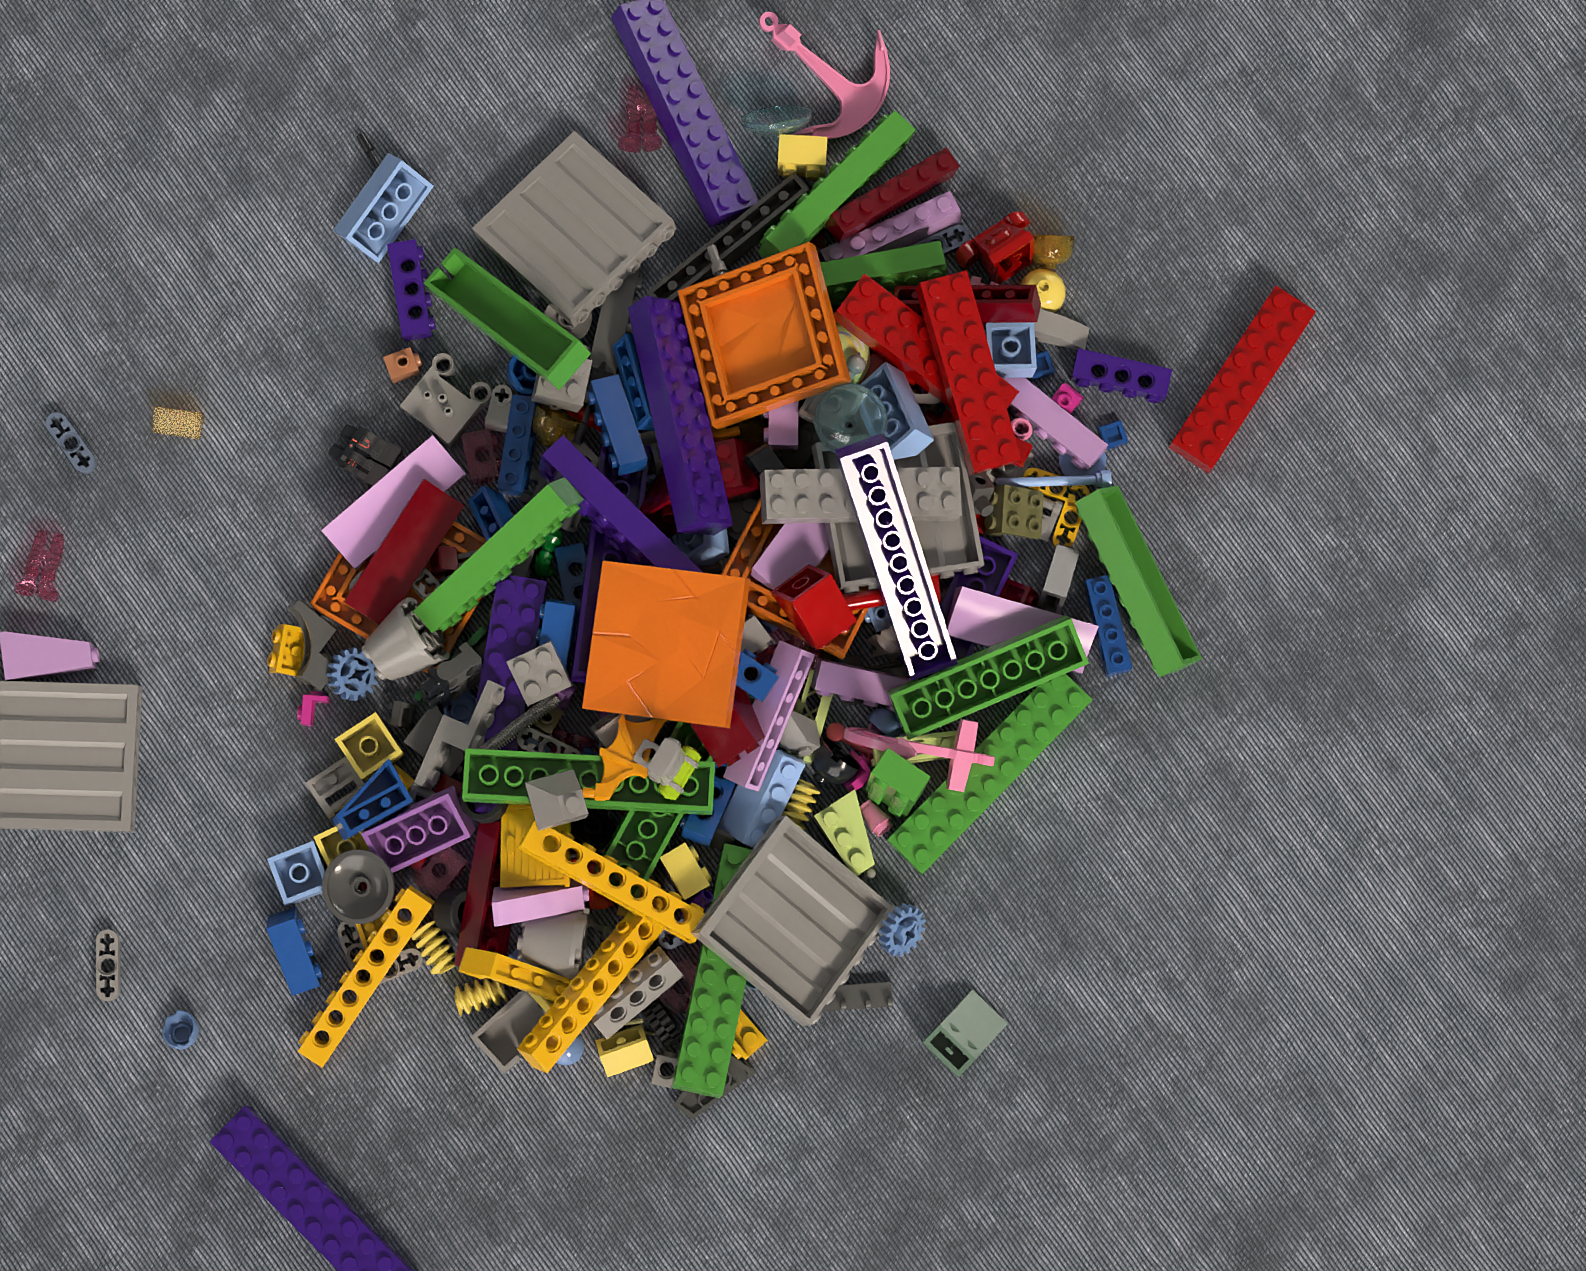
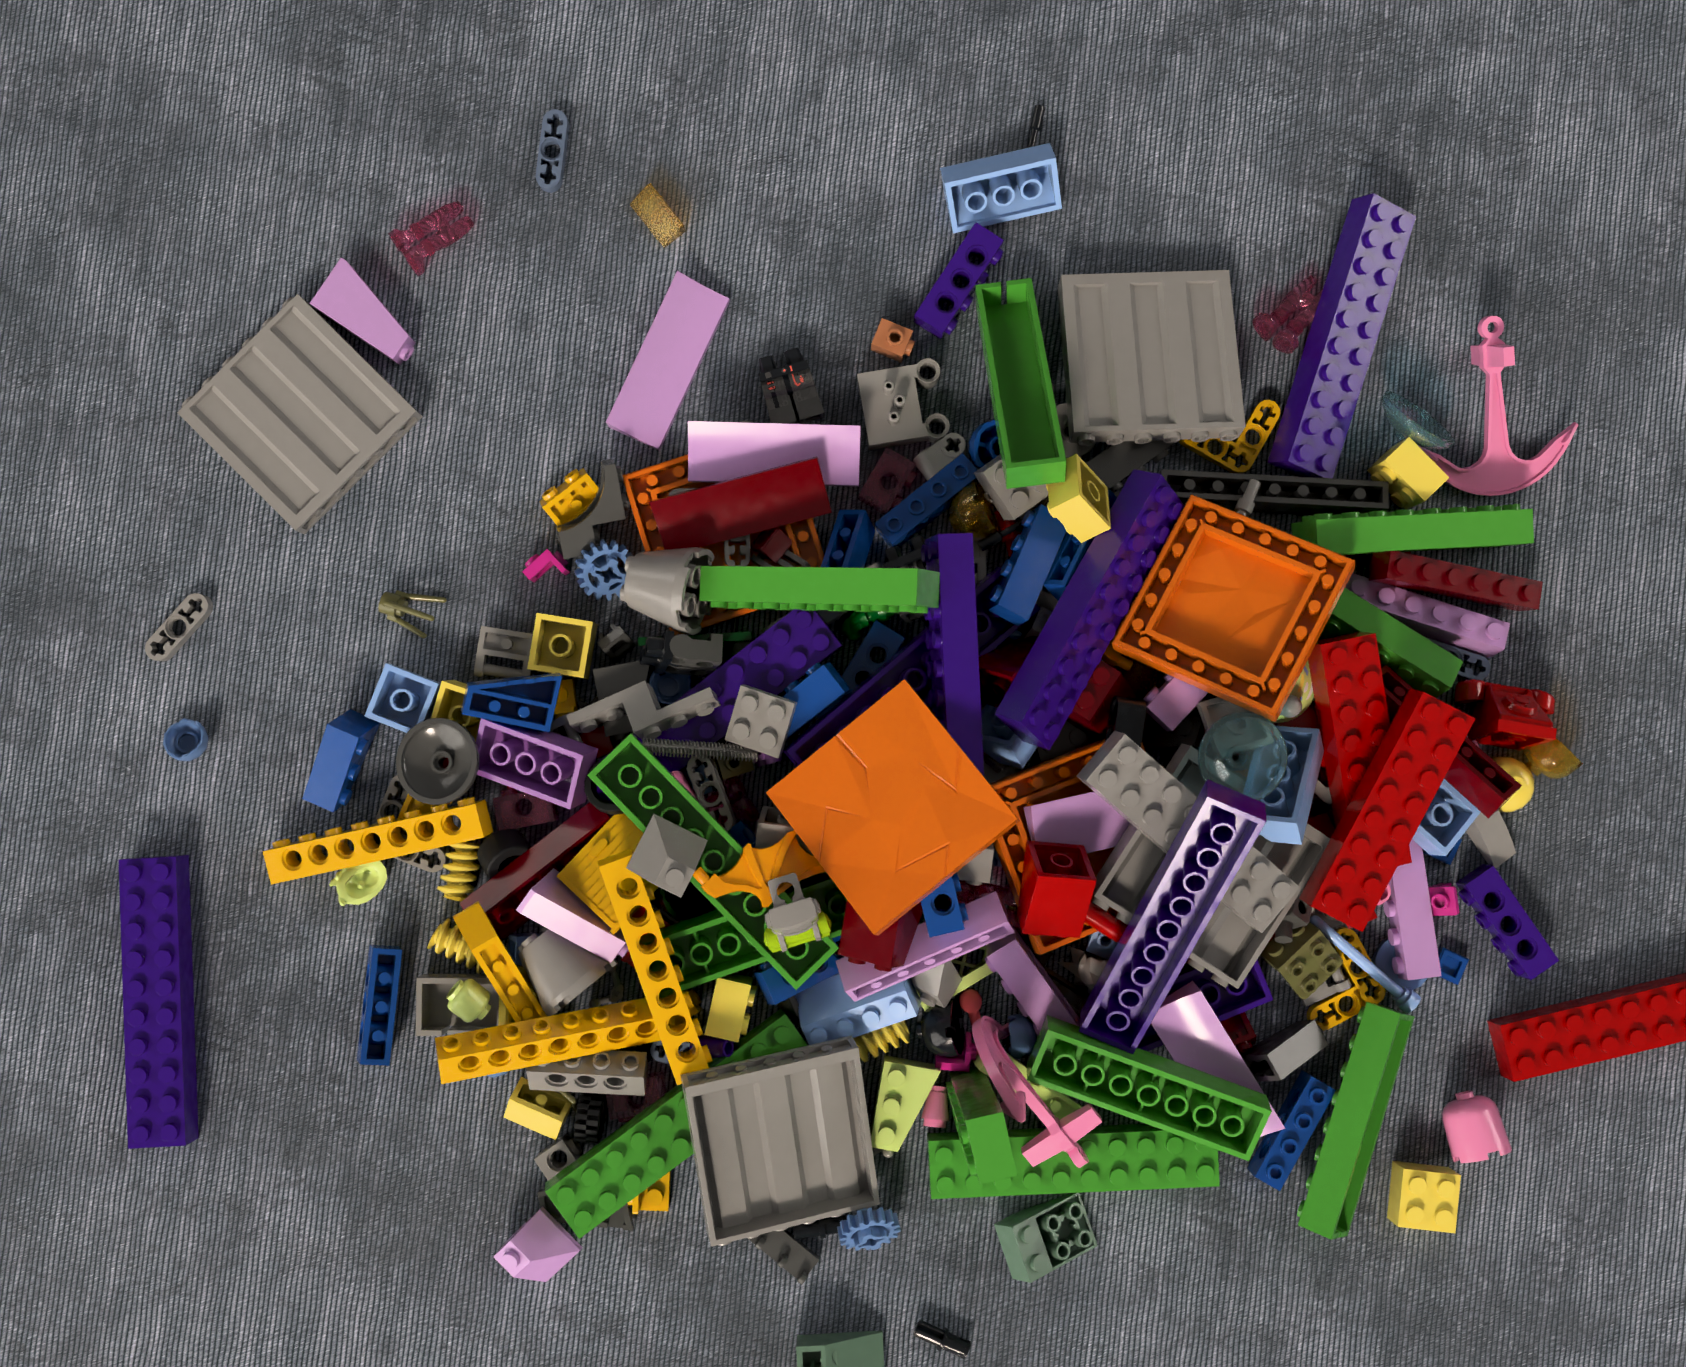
camera: 45 degrees right, 5 degrees up
(236, 821) = (395, 605): none -> olive plant
(270, 508) = (667, 361): none -> lavender arch
(377, 1015) = (359, 883): none -> yellowish green hat
(462, 1079) = (379, 1005): none -> blue brick
(517, 1016) = (469, 1000): none -> yellowish green head
(612, 356) = (1080, 501): none -> light yellow brick
(684, 232) = (1240, 446): none -> yellow beam
(707, 1138) = (537, 1248): none -> lavender slope
(870, 963) = (819, 1228): none -> black pin
(1013, 959) = (942, 1339): none -> black axle
(1018, 834) = (1045, 1237): none -> sand green slope
(1216, 519) = (1474, 1128): none -> bright pink cylinder
(1226, 591) = (1423, 1197): none -> light yellow brick

